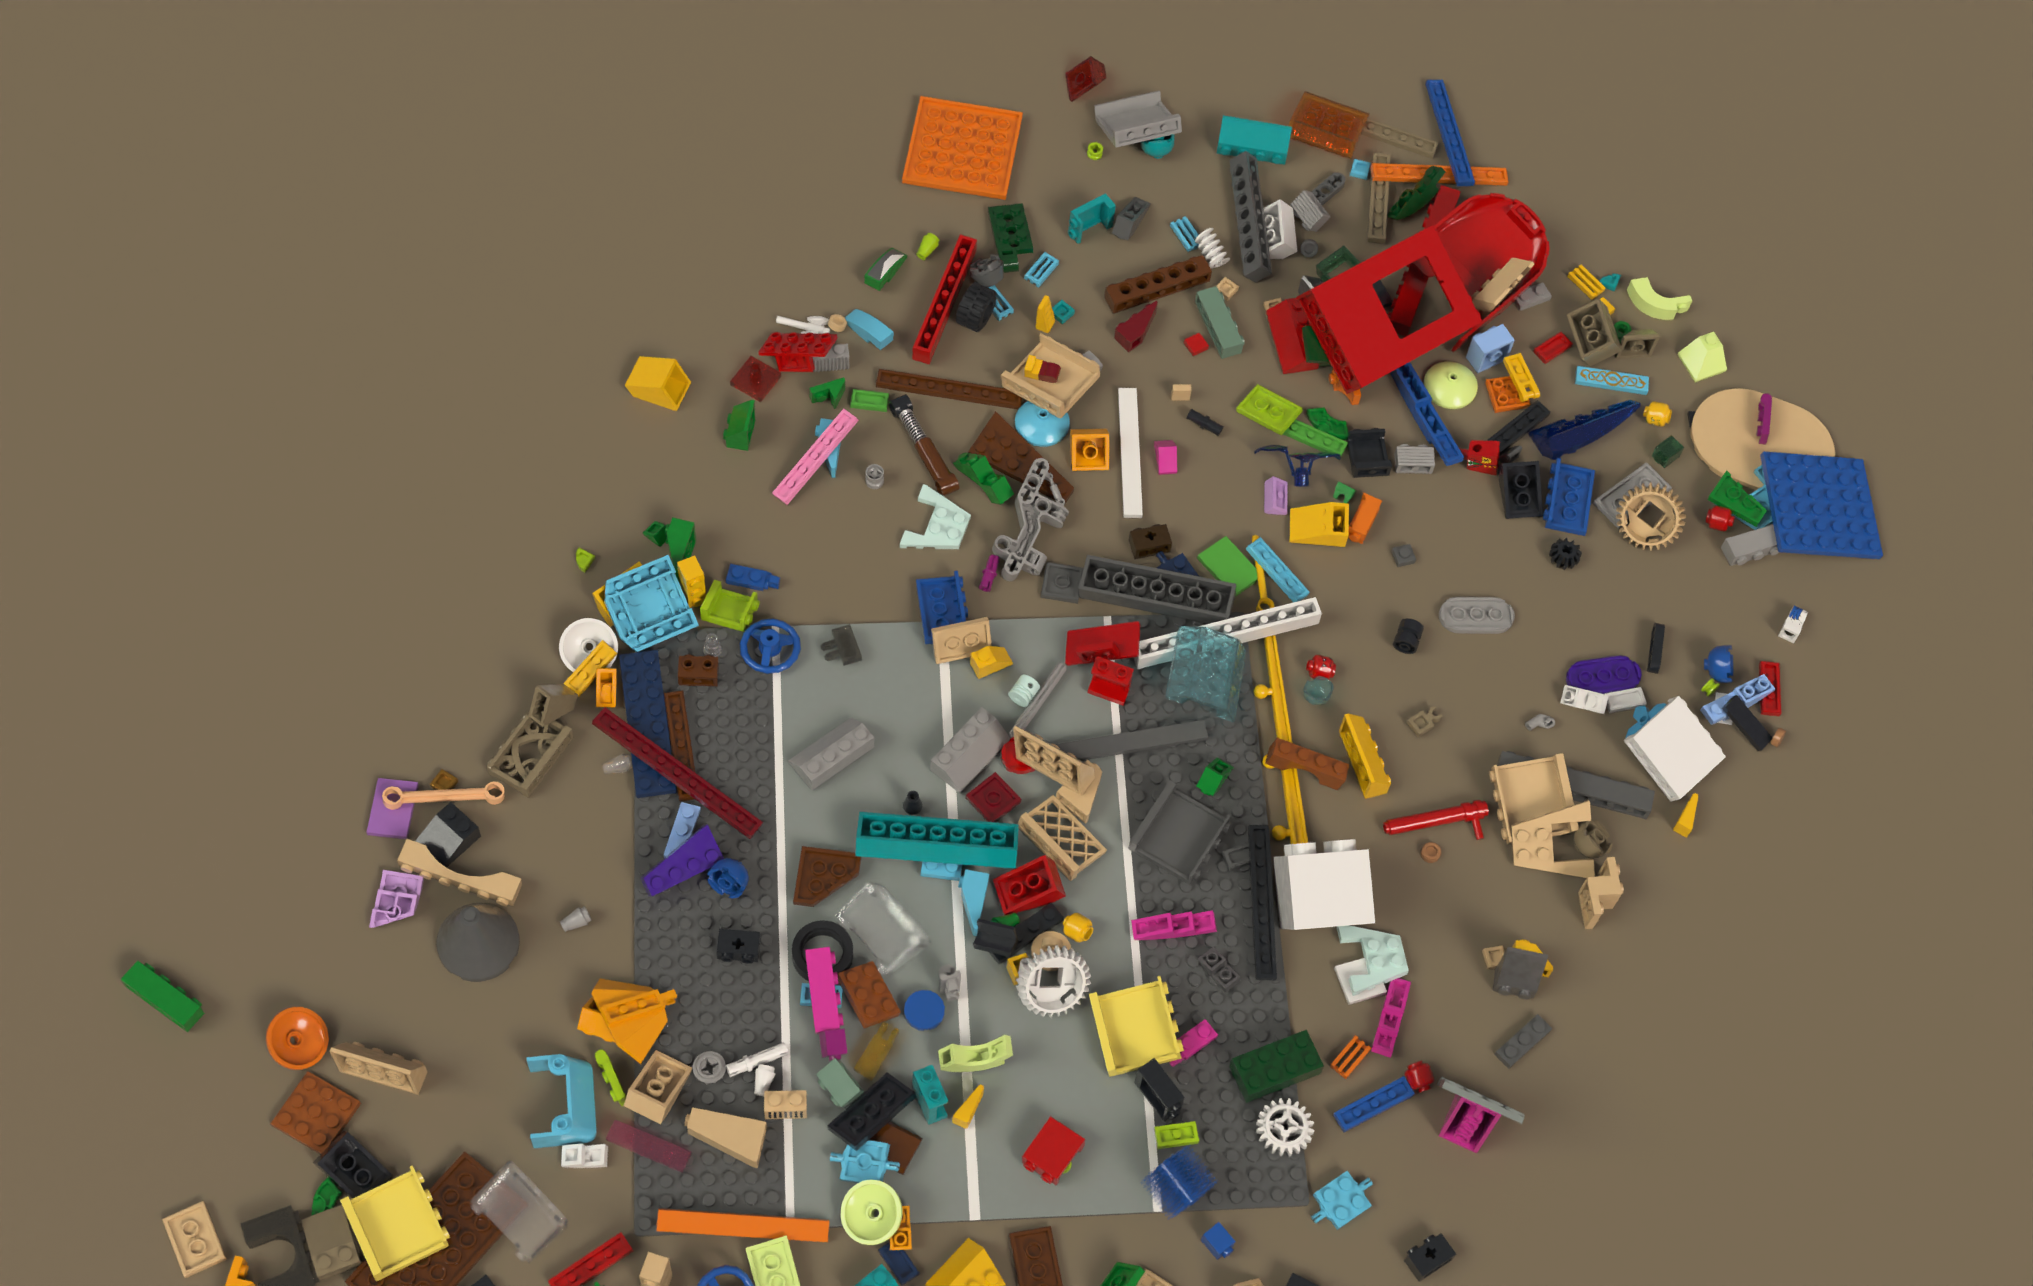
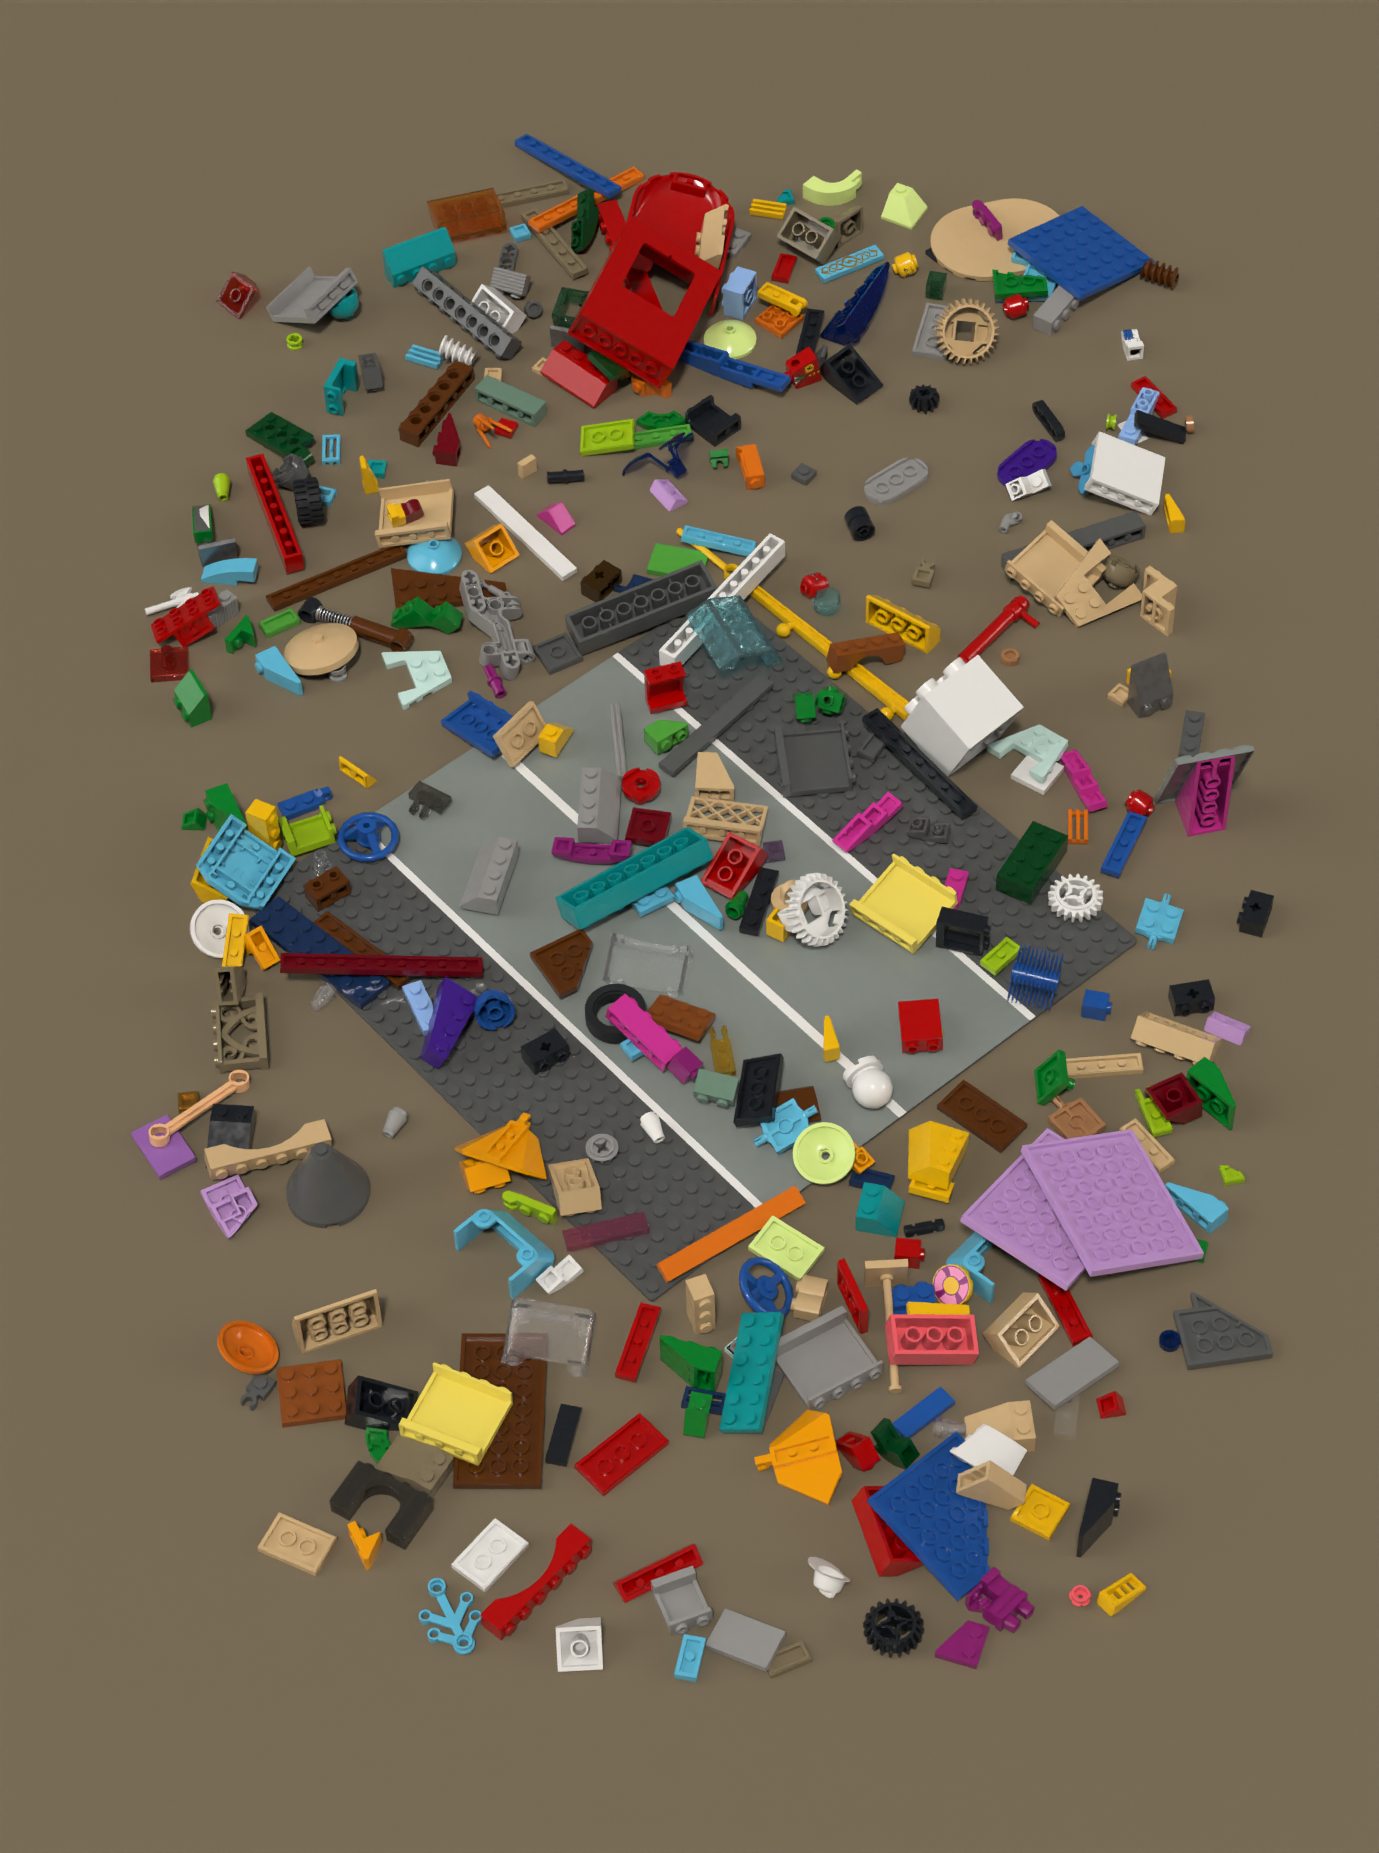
camera: 30 degrees left, 10 degrees down
(163, 996) = (102, 1395): green brick -> none
(282, 1079) = (258, 1388): none -> dark grey plate
(584, 559) = (150, 876): lime tile -> none
(658, 382) = (90, 712): yellow slope -> none
(729, 1133) = (662, 1179): tan slope -> none
(747, 1063) = (631, 1123): white pin -> none
(785, 1104) = (687, 1130): tan brick -> none
(814, 579) = (356, 773): none -> yellow slope
(815, 456) = (277, 684): bright pink tile -> none
(837, 323) = (199, 584): tan tile -> none
(875, 302) = (217, 551): none -> flat silver slope
(877, 448) = (321, 649): none -> tan dish
(912, 803) = (588, 867): black cone -> none
(924, 1010) = (731, 1001): blue tile -> none
(928, 787) = (591, 853): none -> magenta slope
(930, 1094) = (794, 1044): teal panel -> none
(949, 982) = (736, 966): light grey hips -> none
(962, 148) = (183, 401): orange plate -> none
(963, 1177) = (869, 1083): none -> white tile
(975, 1058) = (802, 1005): yellowish green arch -> none
(996, 938) = (742, 912): black panel -> none
(1022, 692) = (602, 741): light aqua piece -> none
(1052, 761) = (675, 762): tan slope -> none
(1076, 895) = (774, 850): none -> clear purple plate
(1077, 927) = (796, 867): yellow head -> none
(1078, 722) = (664, 734): none -> bright green slope
(1106, 641) = (628, 671): red bracket -> none
(1179, 328) = (484, 424): none -> orange plant
(1239, 789) = (837, 700): none -> green brick
(1320, 524) = (722, 489): yellow slope -> none
(1414, 459) = (752, 403): light grey brick -> none
(1568, 498) = (892, 360): blue bracket -> none
(1625, 700) = (1059, 468): white tile -> none
(1720, 664) = (1105, 400): blue cylinder -> none
(1876, 573) = (1160, 274): none -> reddish brown piece

